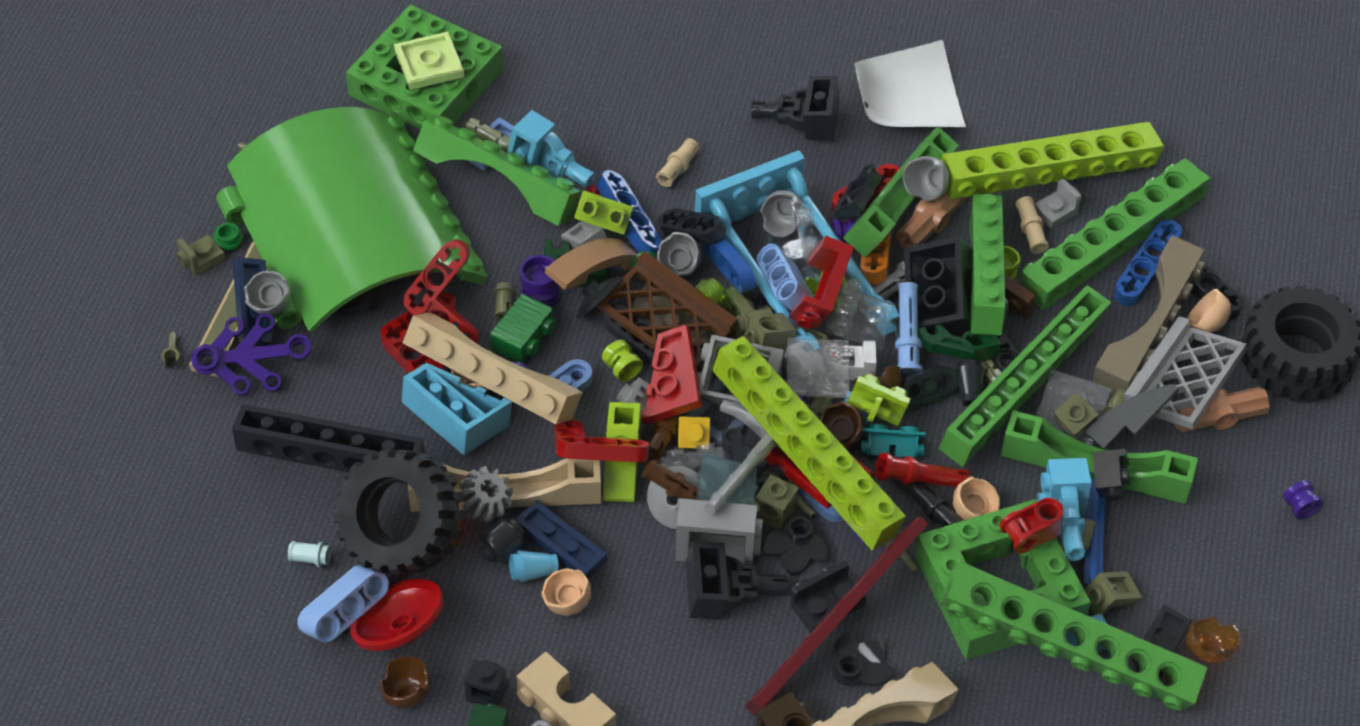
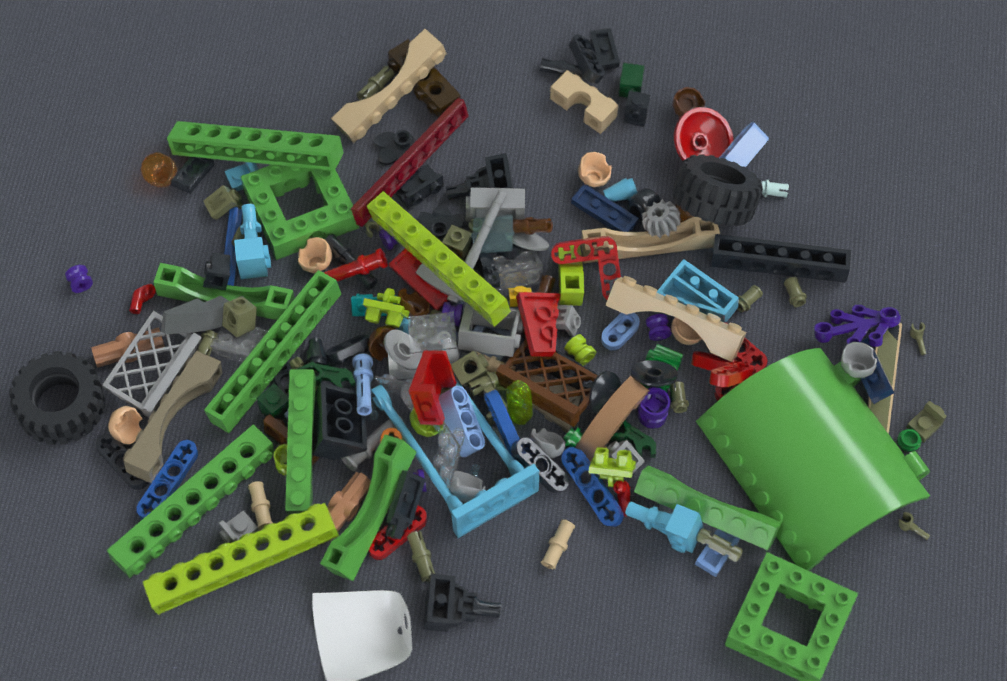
camera: 175 degrees right, 10 degrees up
(319, 406) = (797, 297): none -> olive pin
(386, 410) = (749, 298): none -> olive pin
(429, 60) = (787, 600): yellowish green tile -> none
(523, 283) = (654, 373): none -> black dish
(838, 161) = (421, 555): none -> olive pin
(864, 341) = (397, 347): none -> light grey dish
(926, 178) = (345, 516): light grey hair -> none
(1022, 323) = (273, 402): none -> dark green brick
(1029, 528) = (280, 207): red piece -> none
(1215, 477) = (140, 296): none -> red arm

